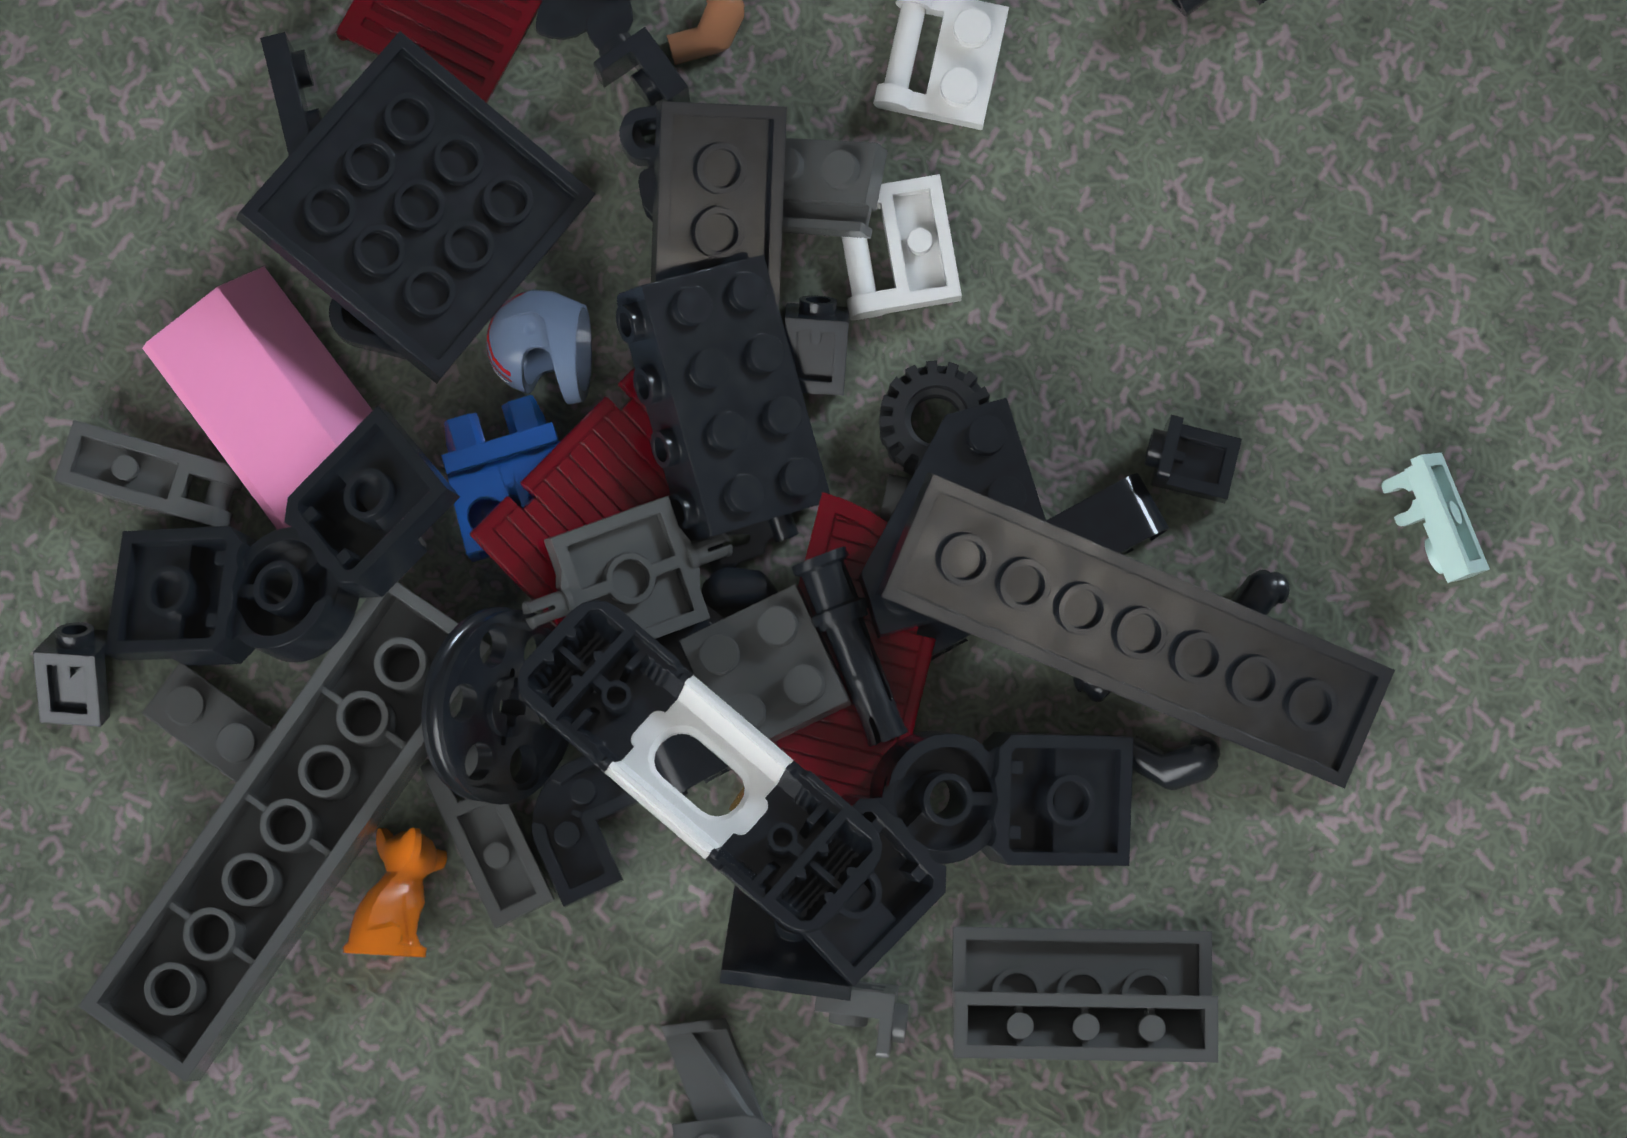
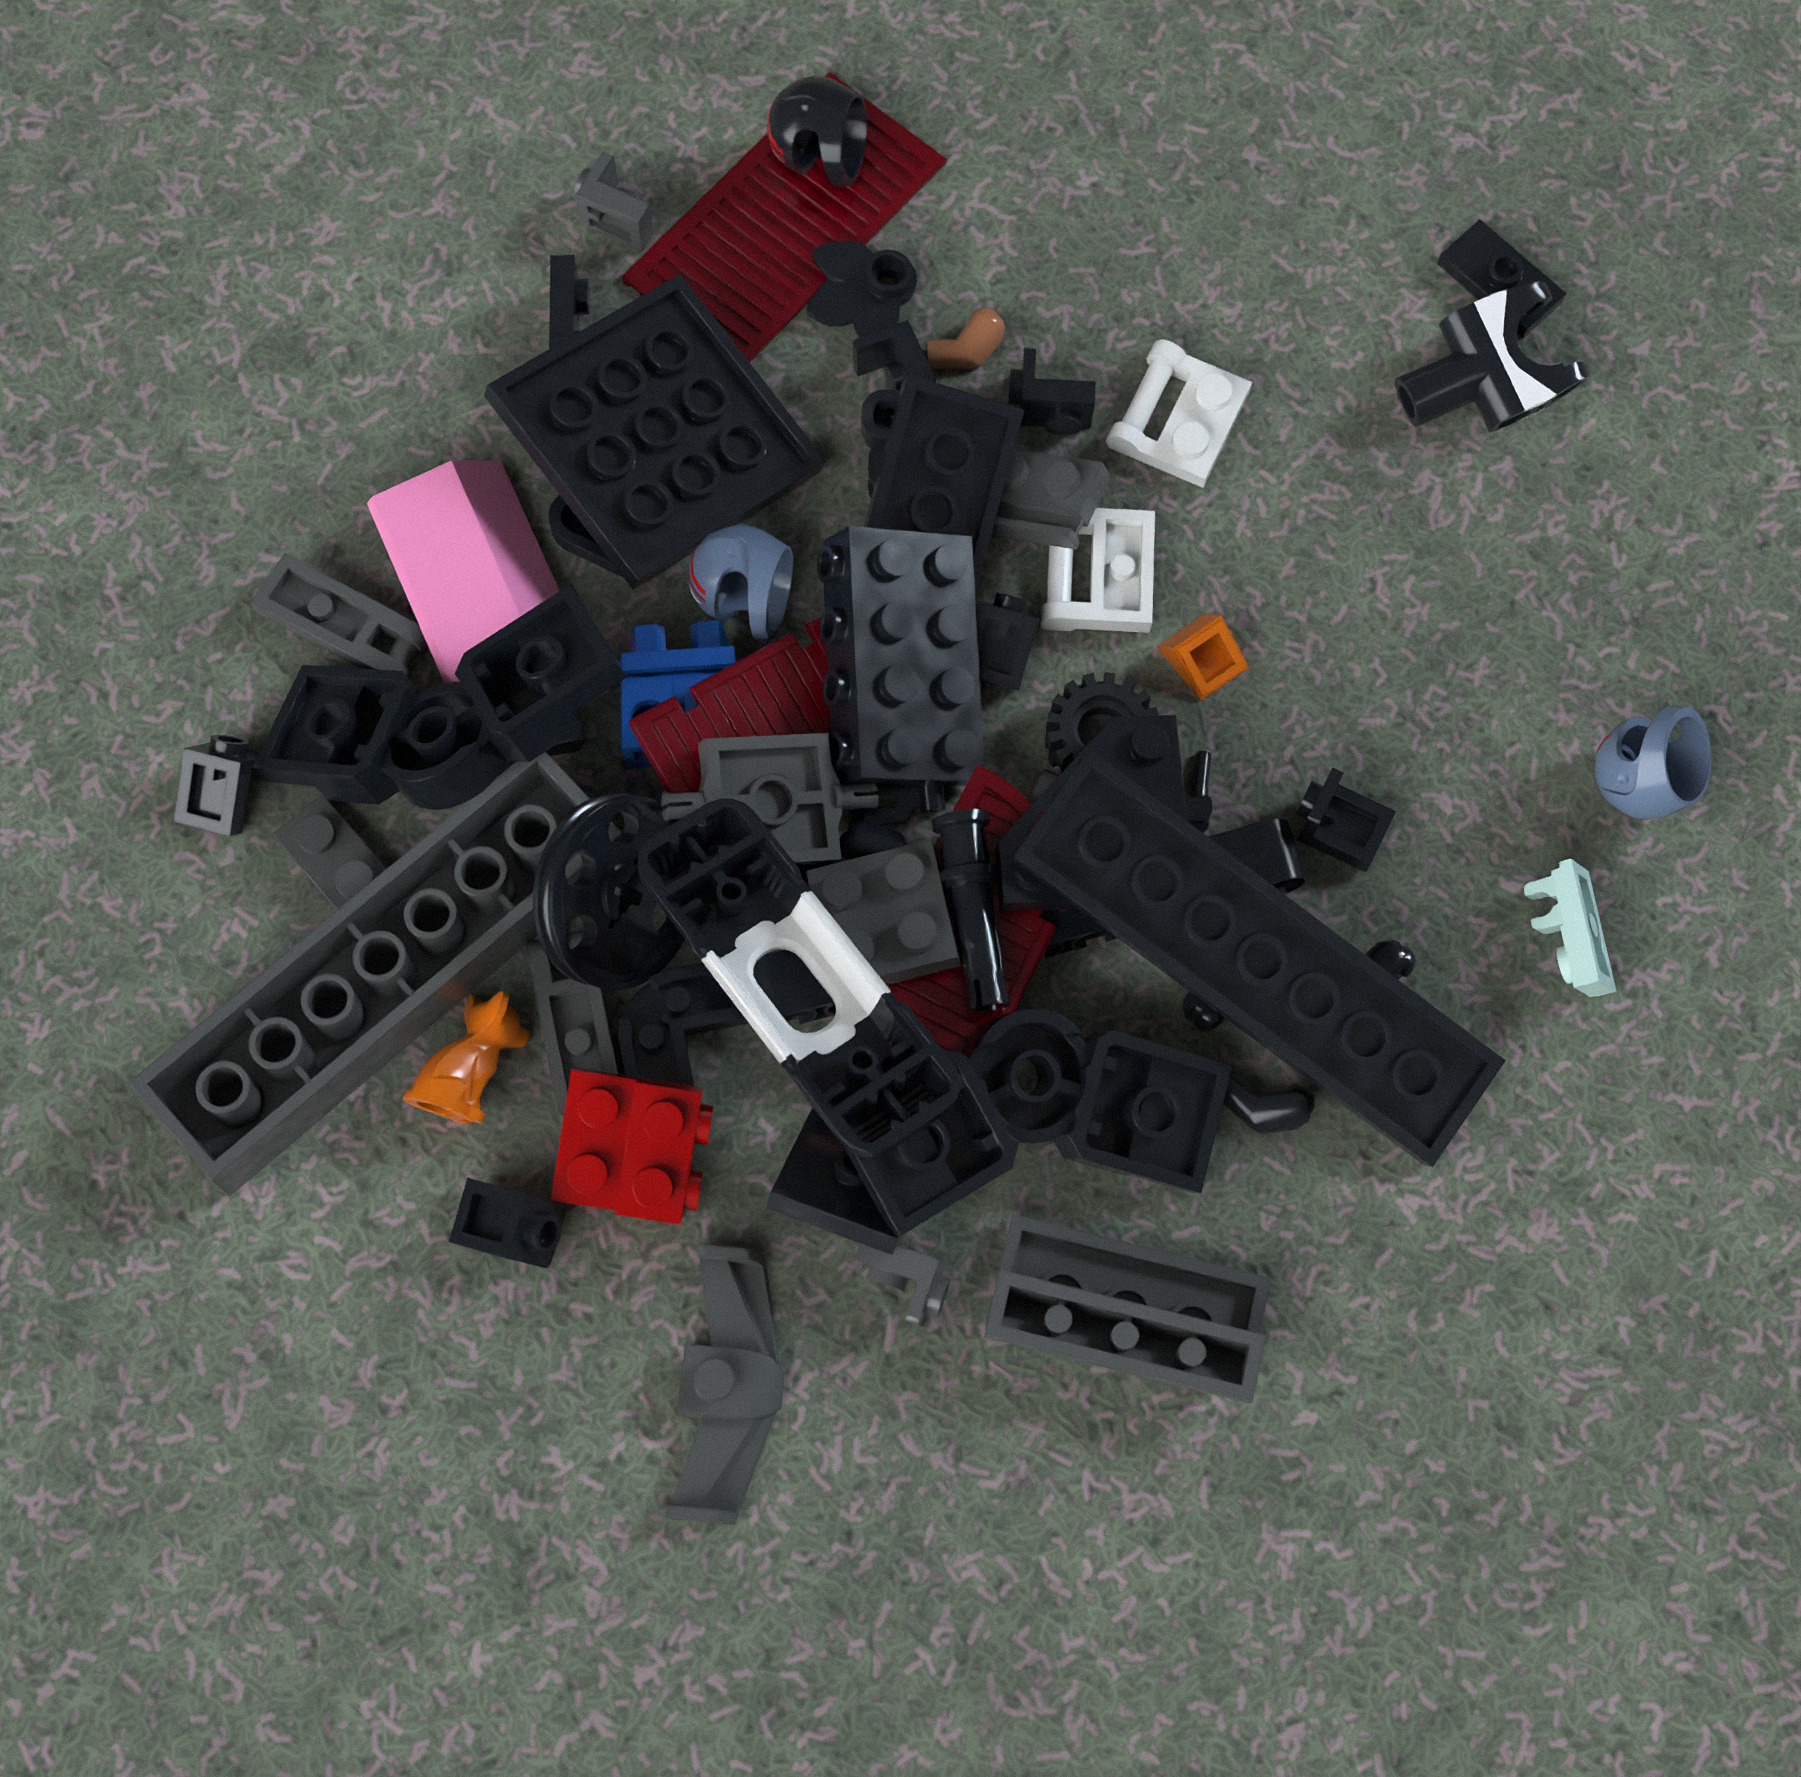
camera: 10 degrees right, 10 degrees down
(474, 1047) = (508, 1223): none -> black bracket
(575, 947) = (630, 1145): none -> red plate
(817, 80) = (1051, 403): none -> black bracket
(1019, 311) = (1204, 654): none -> orange slope
(1046, 476) = (1200, 804): none -> black hand
(1484, 340) = (1648, 773): none -> sand blue helmet

